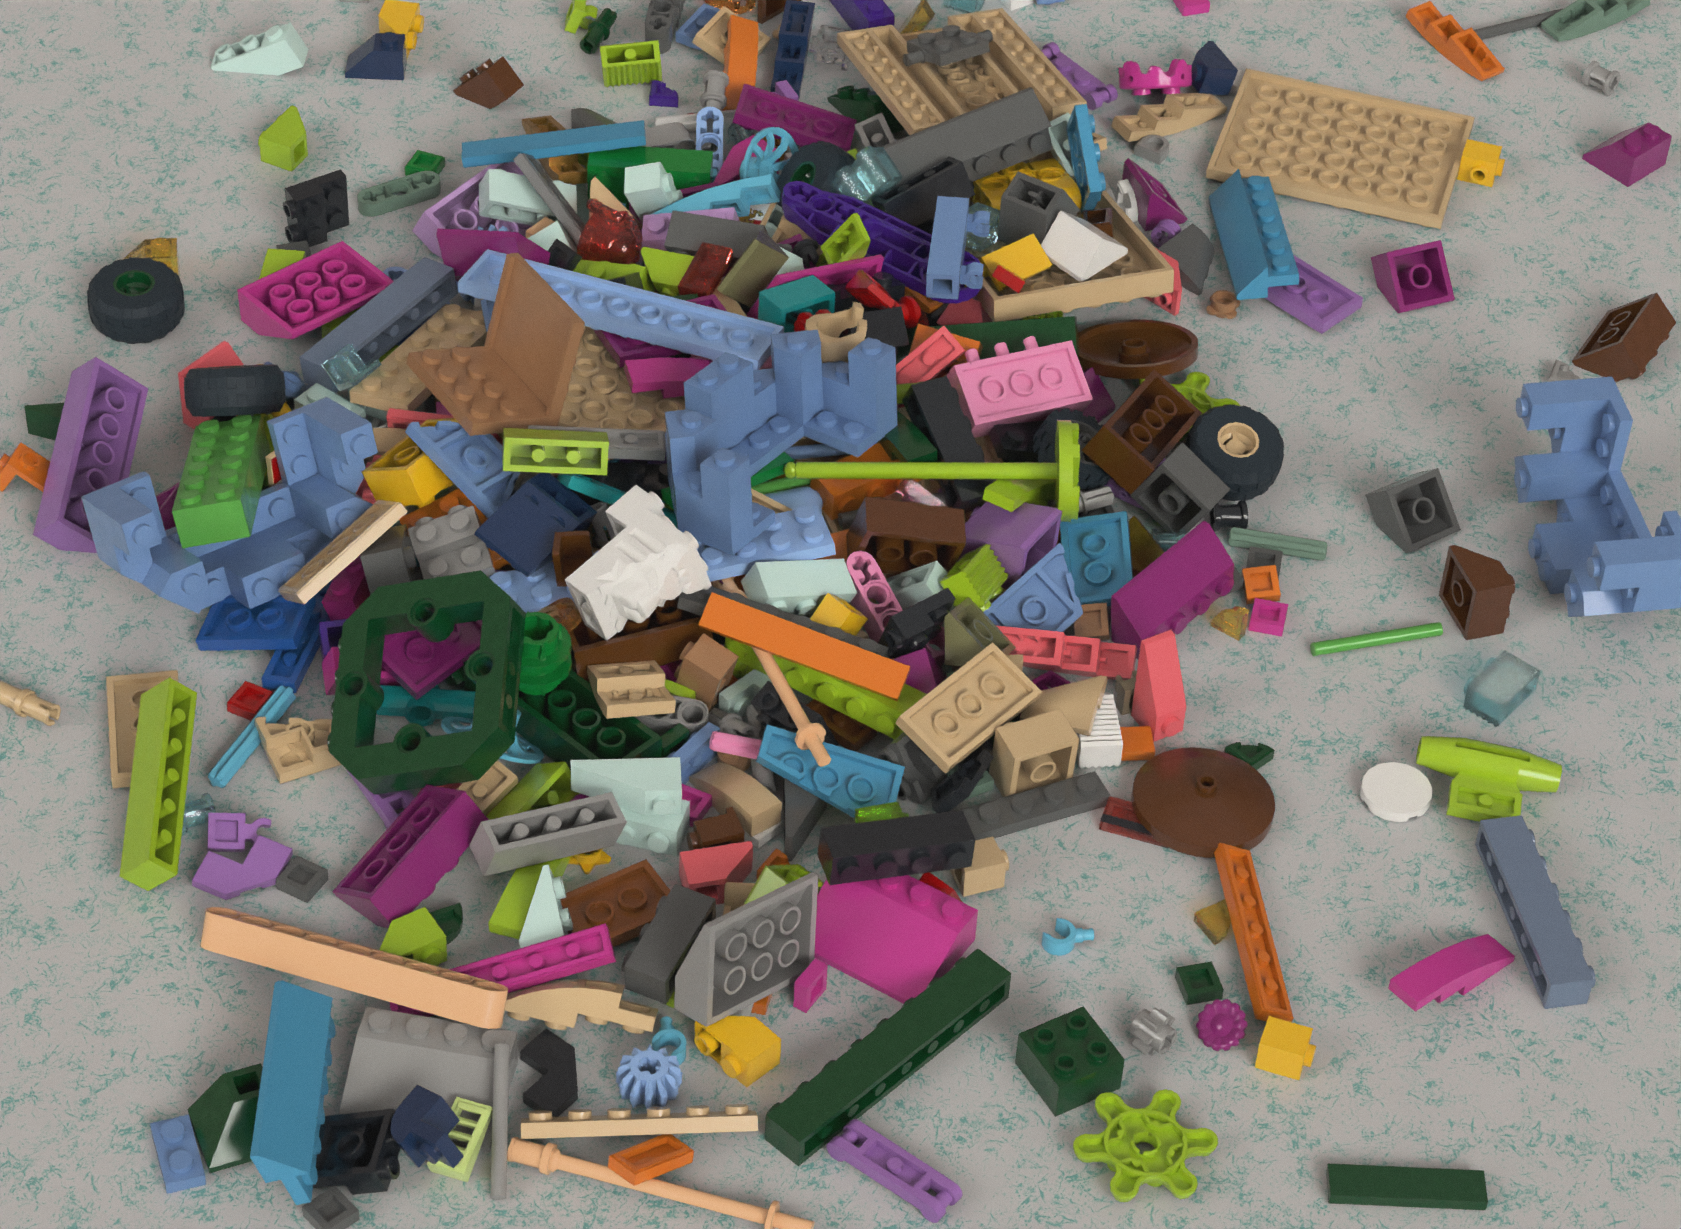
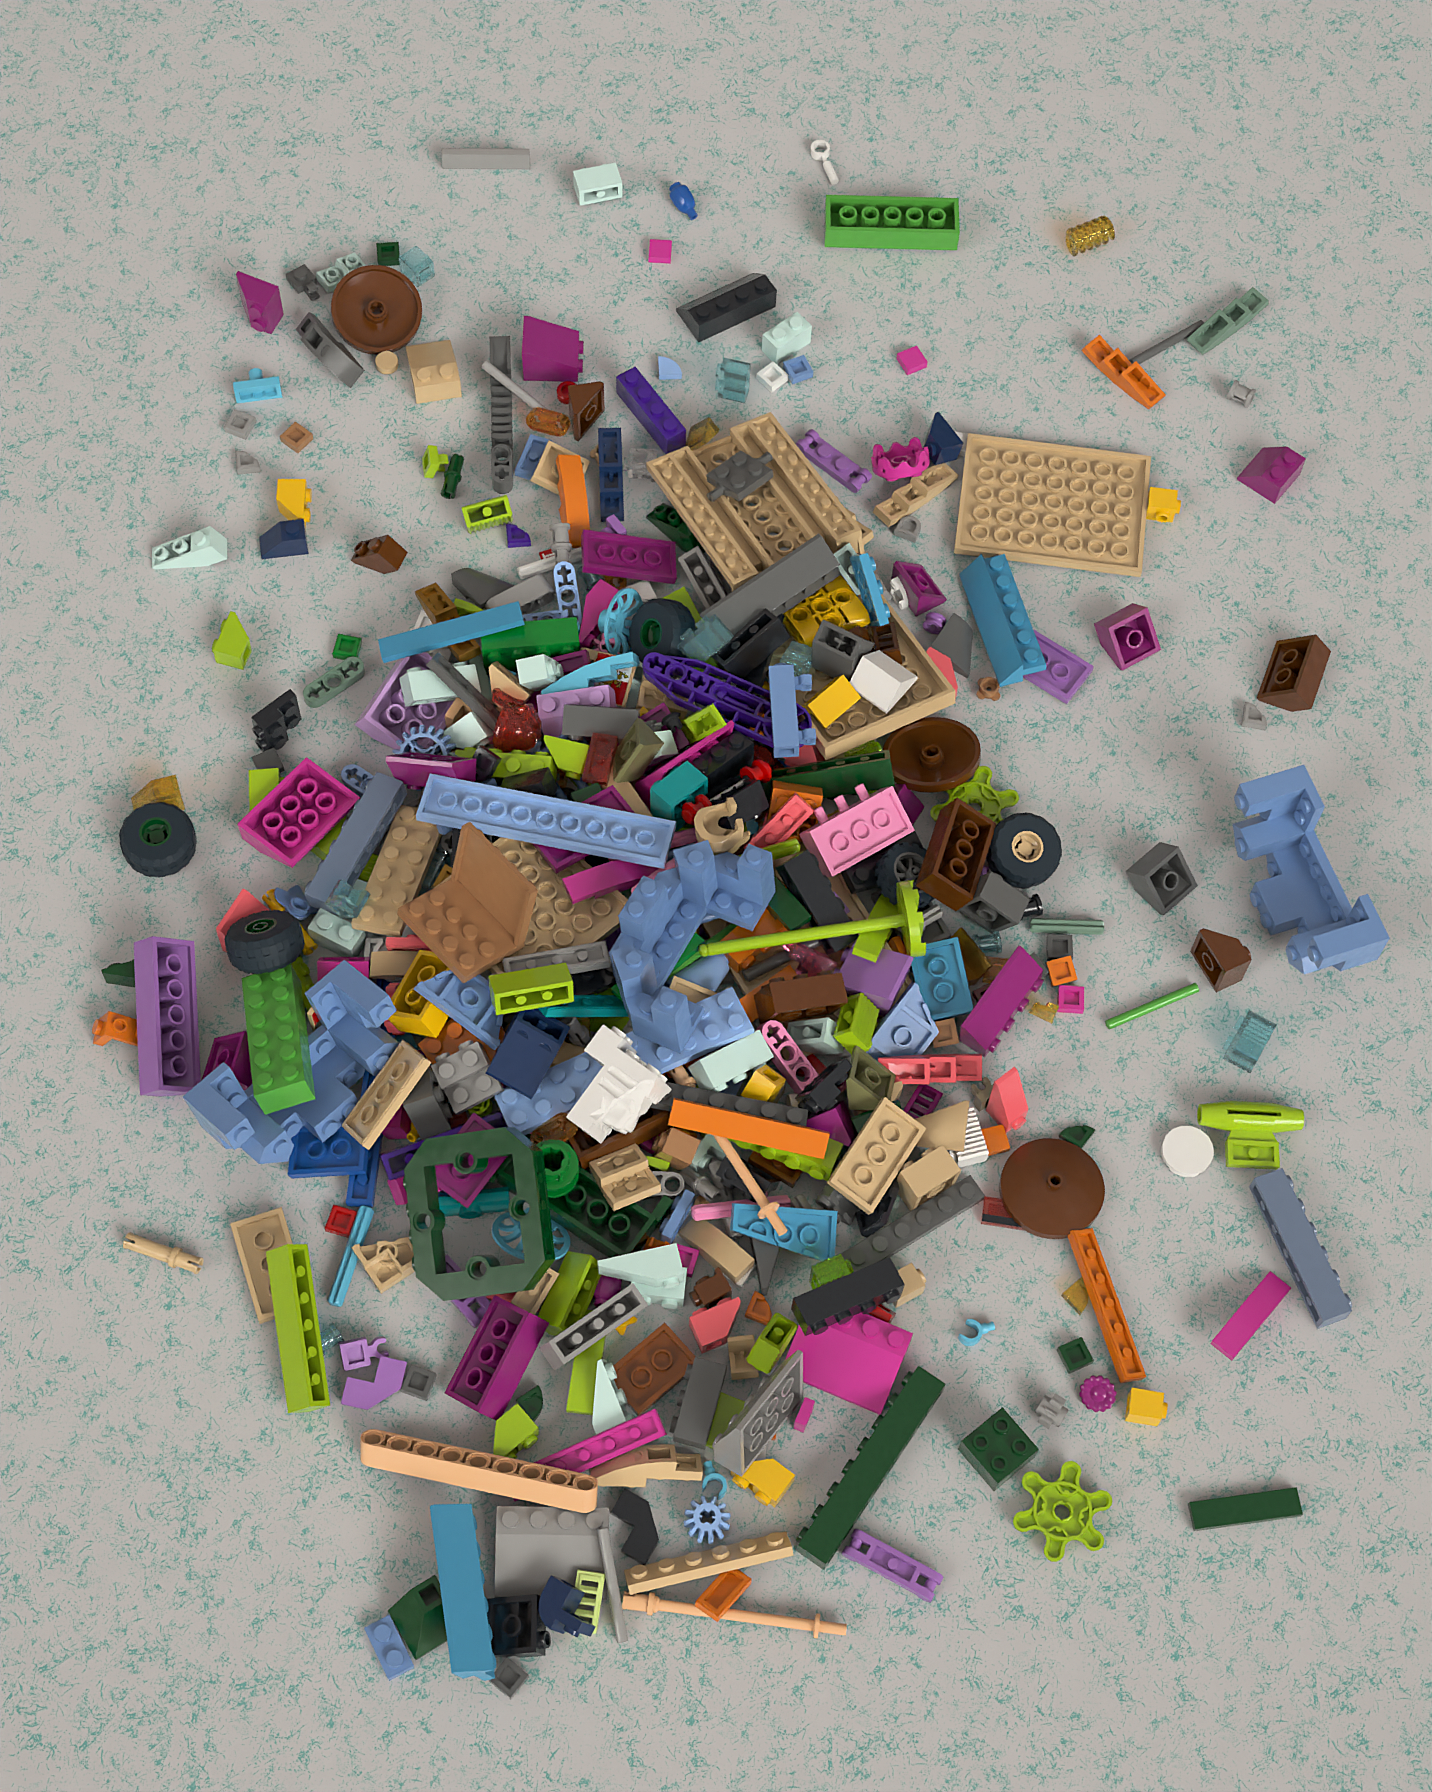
camera: 10 degrees left, 20 degrees up
(569, 553) = (563, 1079): reddish brown panel -> none
(869, 291) = (734, 767): red slope -> none
(1008, 278) = (832, 723): red tile -> none

